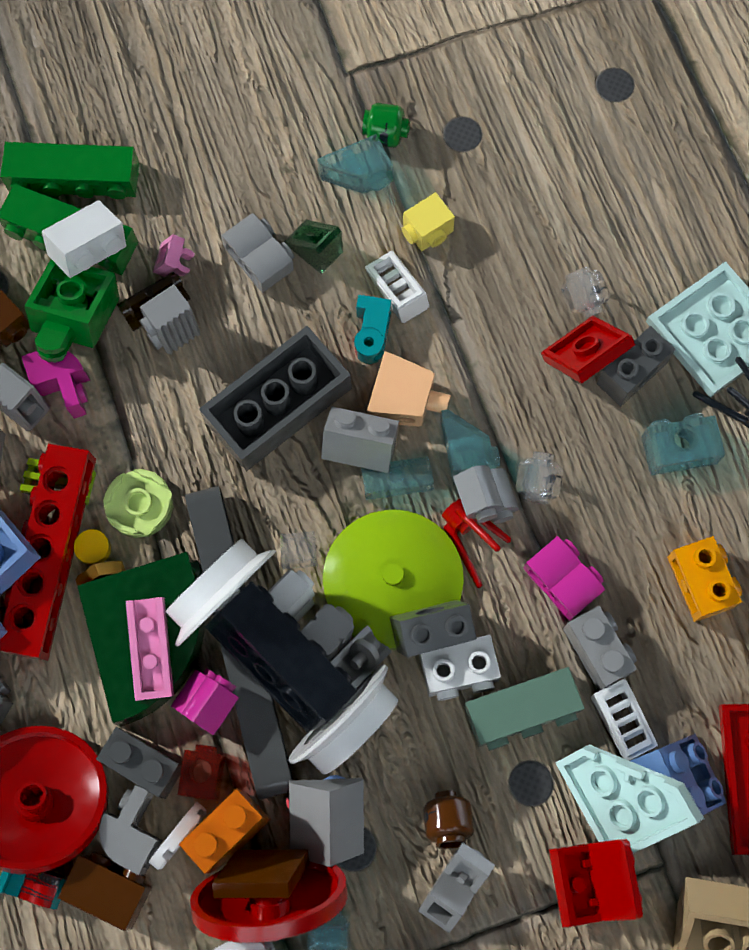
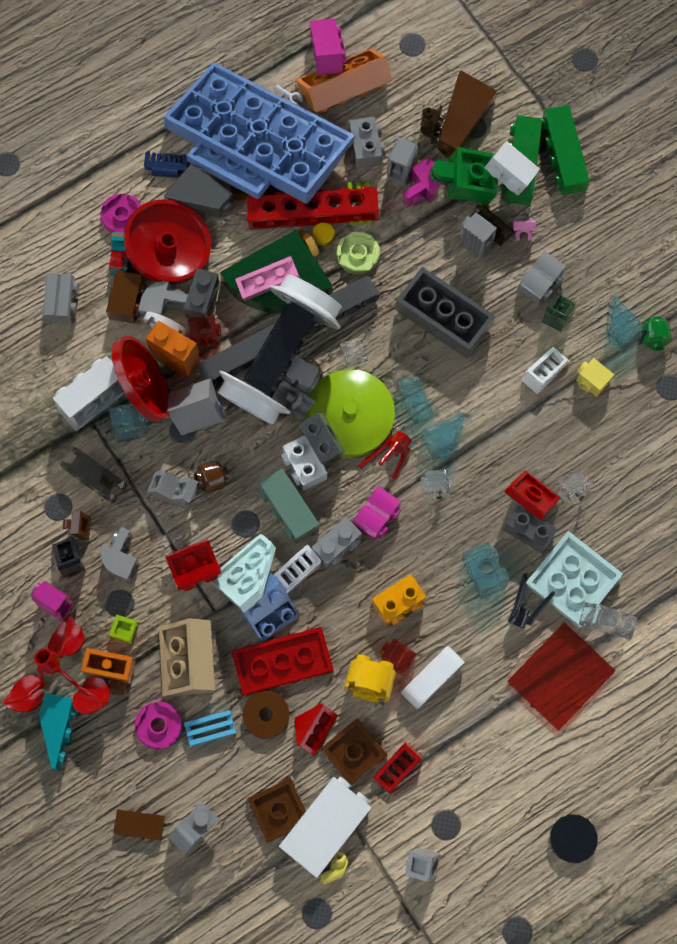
camera: 70 degrees right, 0 degrees up
(206, 700) = (245, 319): dark pink brick -> none
(261, 874) = (154, 373): reddish brown tile -> none
(293, 593) = (317, 350): white brick -> none
(359, 439) = (432, 369): light grey brick -> none
(372, 337) = (511, 361): teal leg -> none
(405, 392) = (471, 389): light nougat torso -> none
(486, 494) = (415, 451): light grey brick -> none

